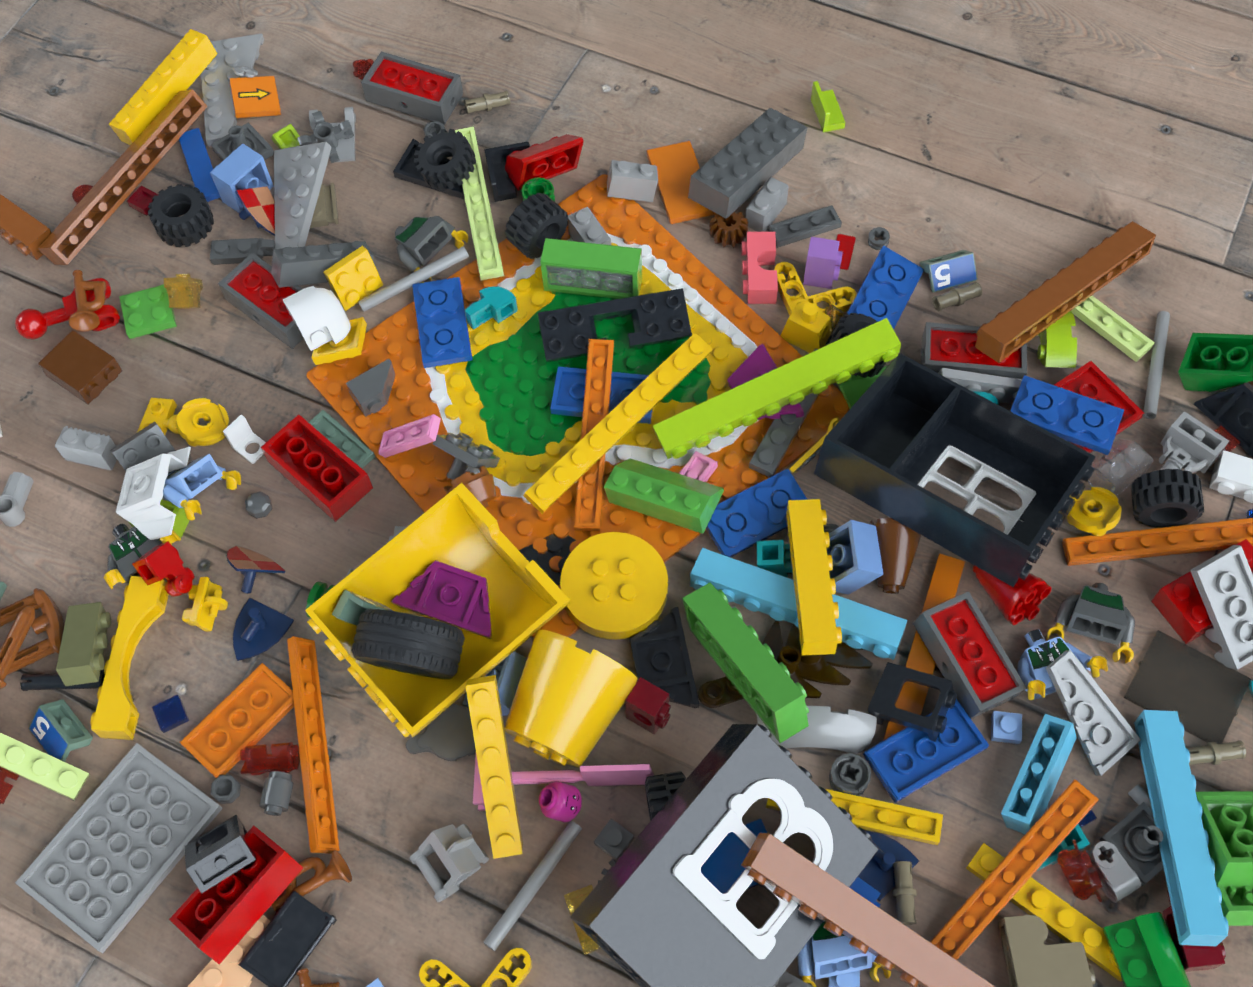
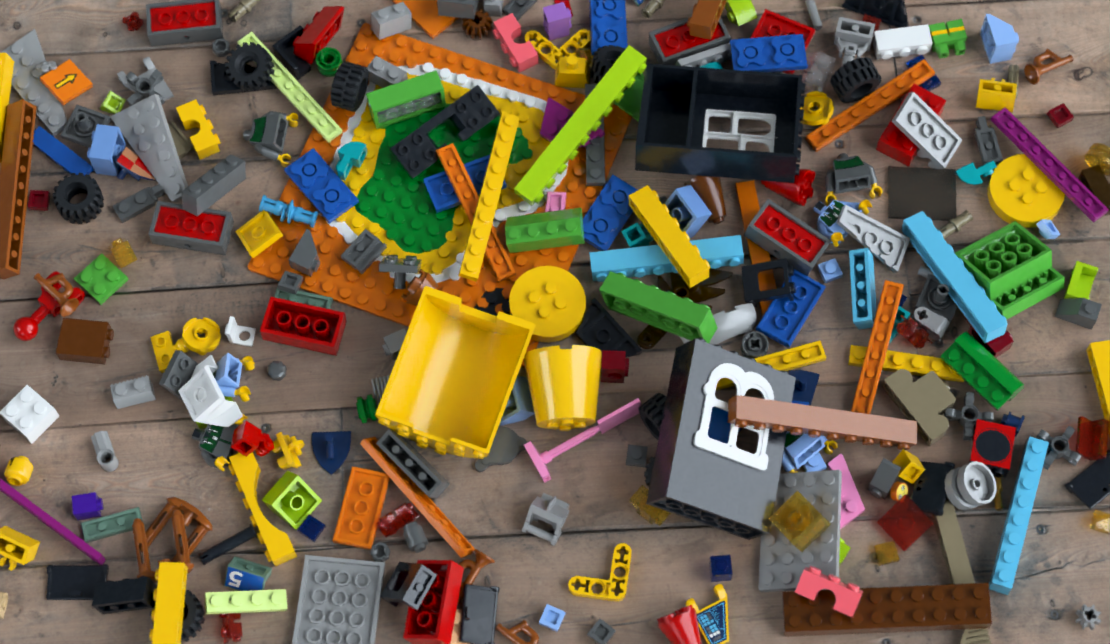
camera: 30 degrees left, 5 degrees up
(83, 644) = (228, 513): olive brick -> none
(168, 666) = (292, 499): none -> lime slope
(249, 564) = (301, 411): shield -> none
(318, 316) = (238, 223): white brick -> none
(331, 701) = (413, 464): none -> dark grey brick
(336, 411) = (290, 282): none -> dark grey plate
(353, 218) = (204, 141): none -> yellow arch
(353, 278) = (240, 184): yellow plate -> none
(353, 605) = (406, 398): sand green panel -> none
(384, 332) = (288, 211): none -> dark azure piece
(408, 643) = (449, 402): black tyre -> none
(409, 436) = (356, 274): bright pink tile -> none
(413, 278) = (282, 164): light grey piece -> none
(447, 408) = (363, 251): none -> dark grey plate
(450, 597) = (451, 363): magenta wing -> none
(494, 766) = (546, 446): yellow brick -> none
(532, 886) = (604, 506): light grey piece -> none
(560, 801) = (593, 449): dark pink head -> none
(814, 451) = (629, 137): yellow flag -> none
(904, 892) = (820, 394): dark tan pin -> none

